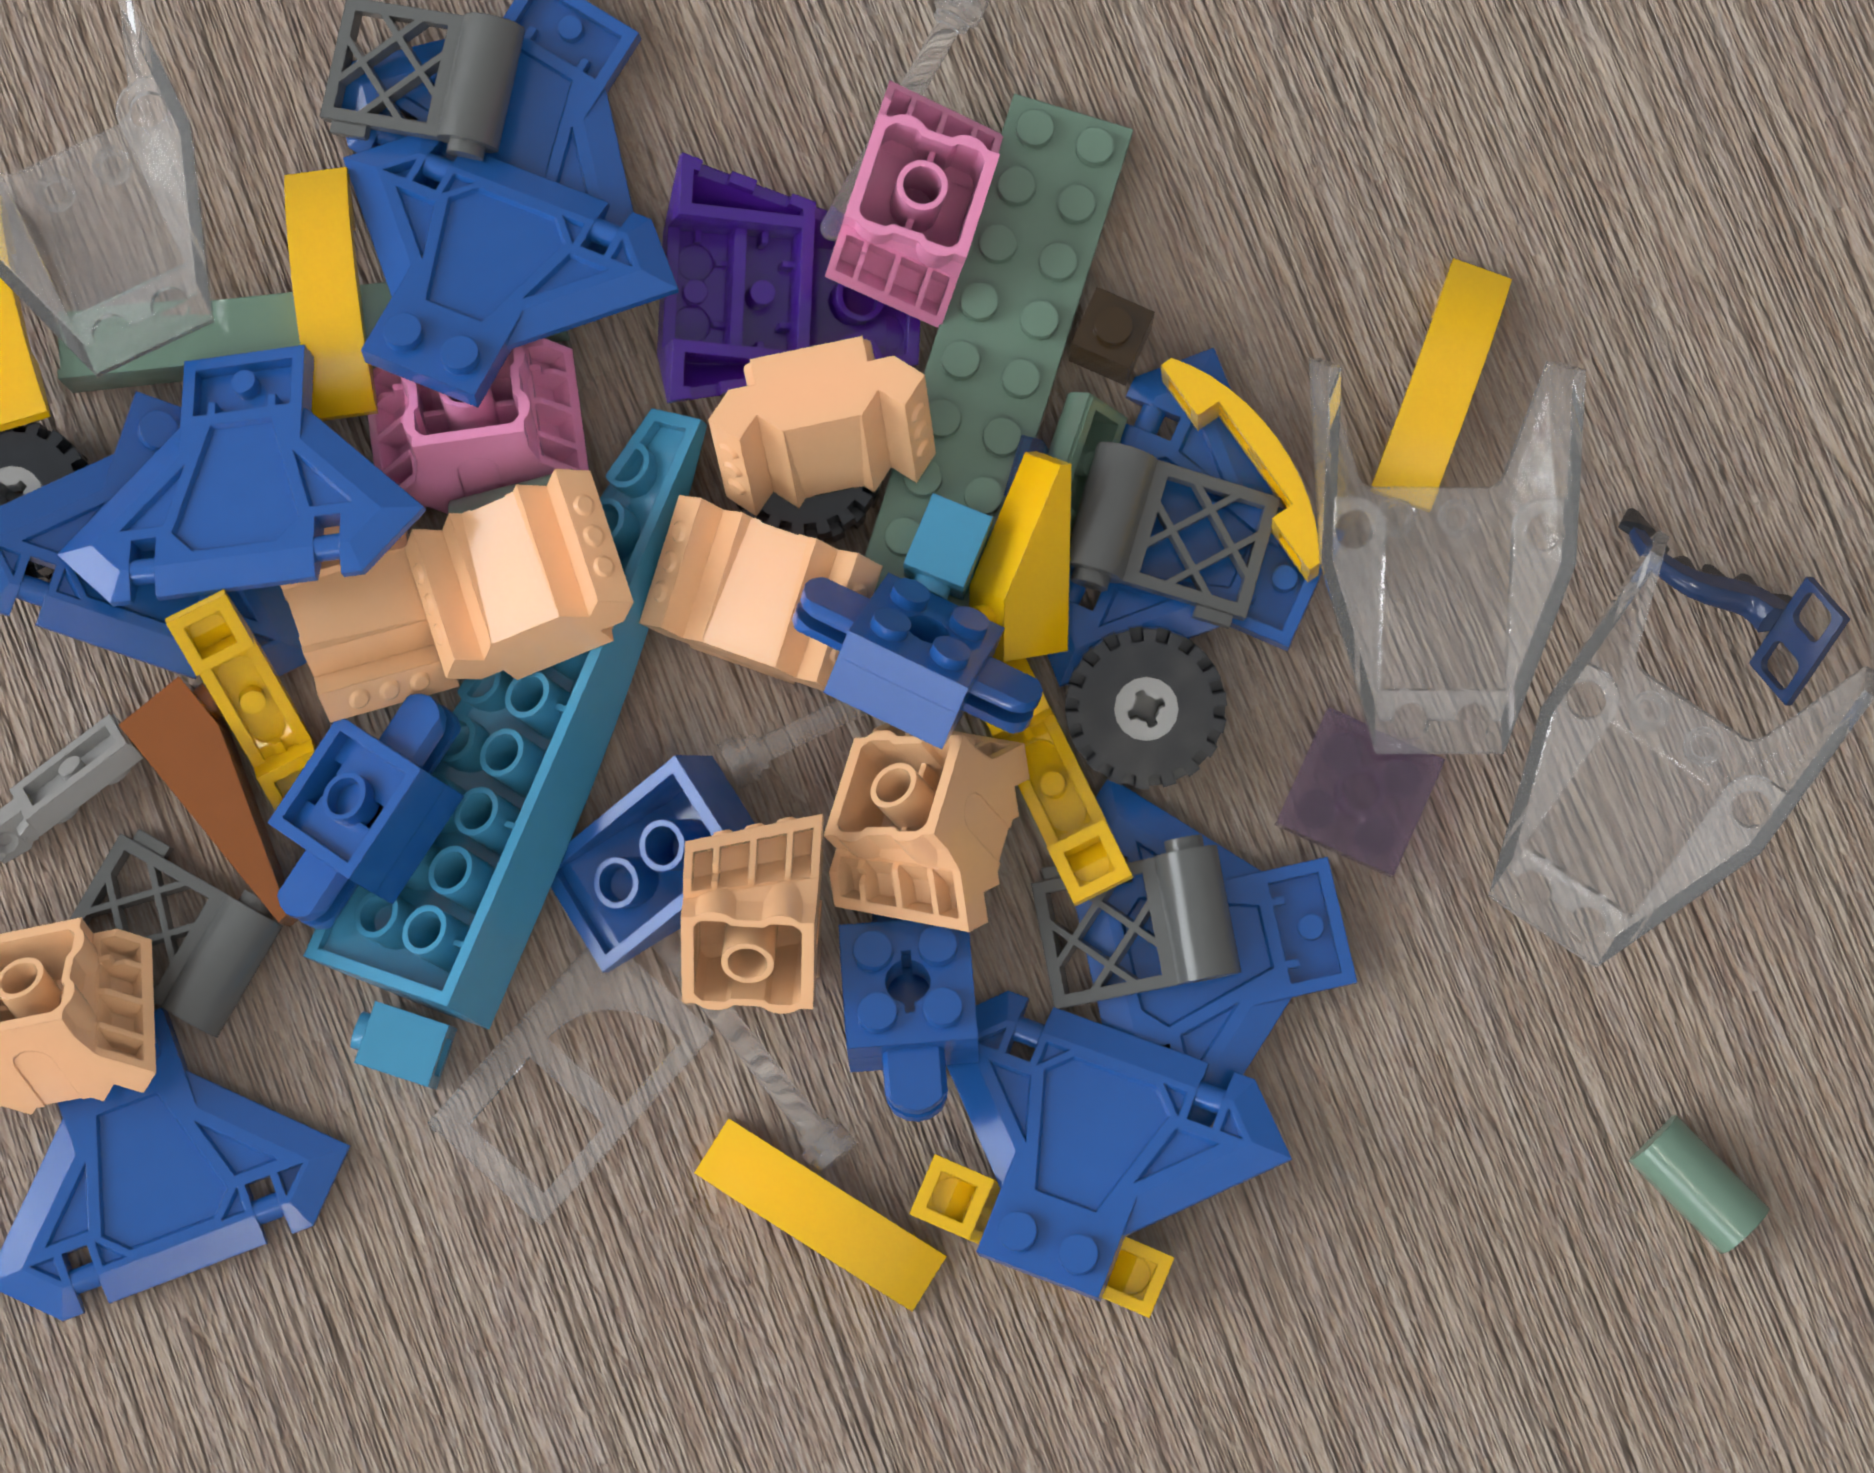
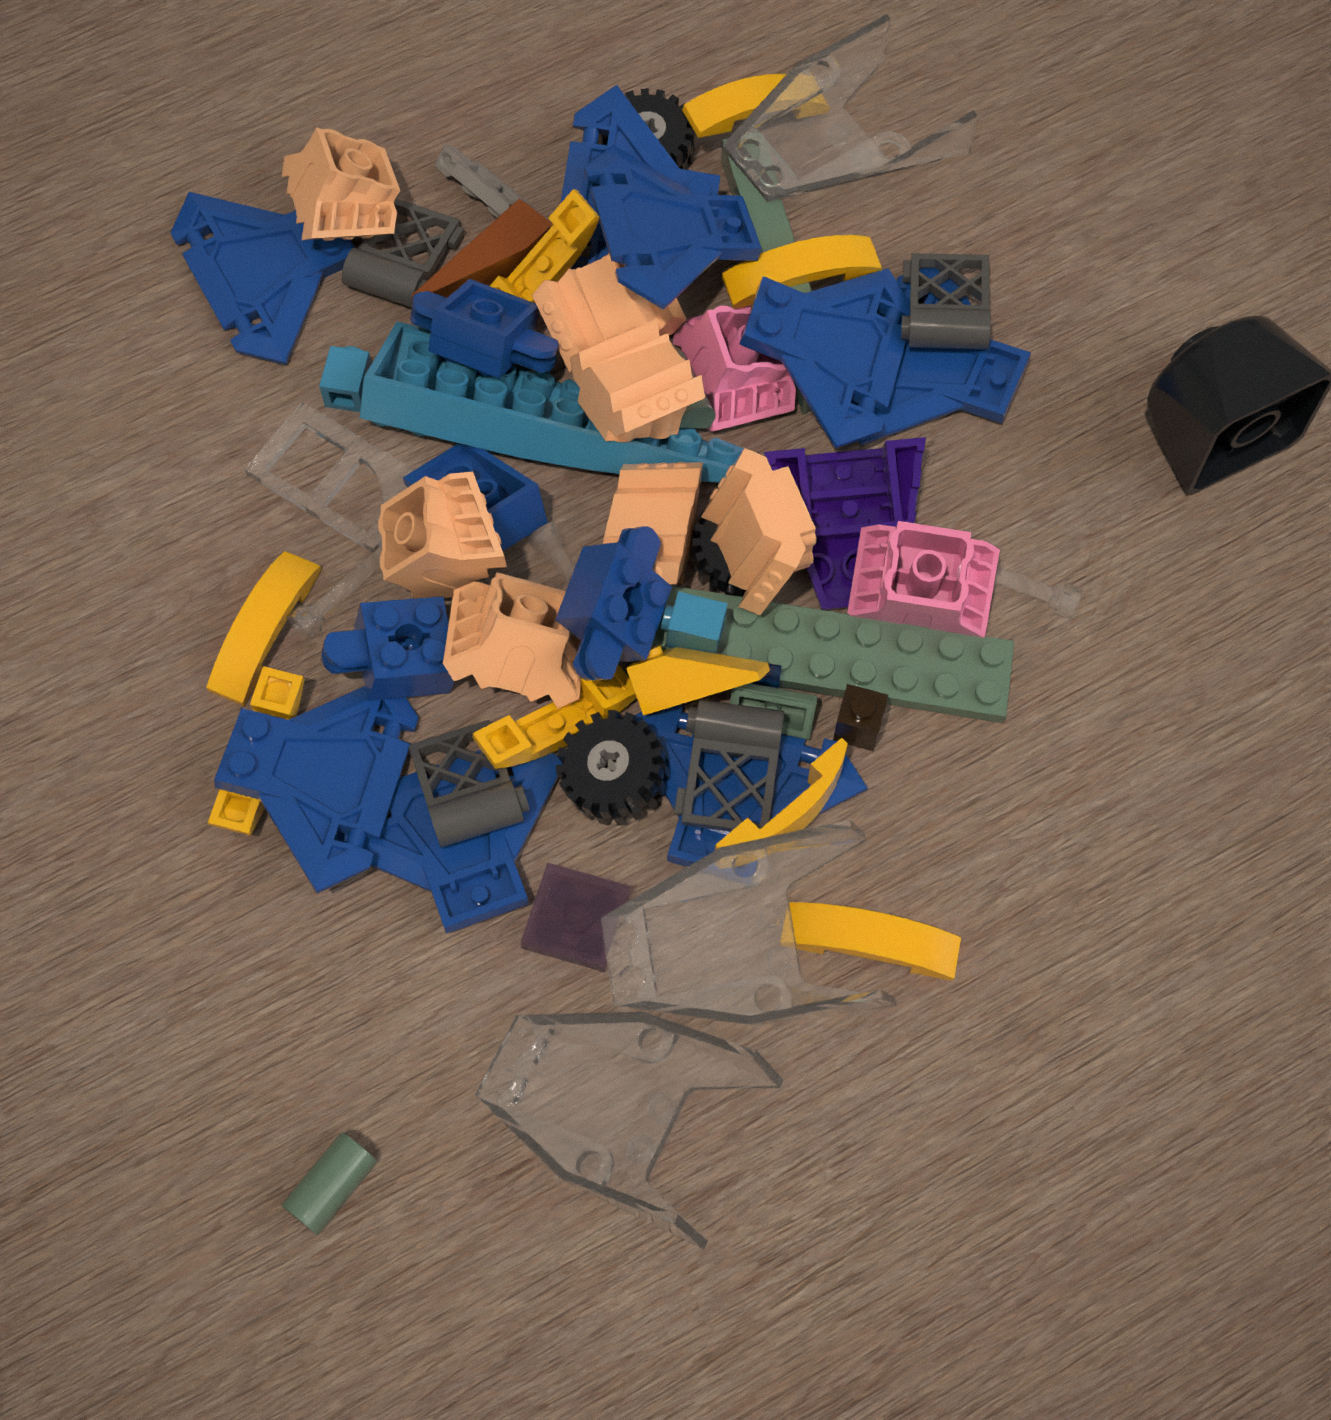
camera: 80 degrees right, 15 degrees down
(1761, 608) = (751, 1159): dark blue piece -> none

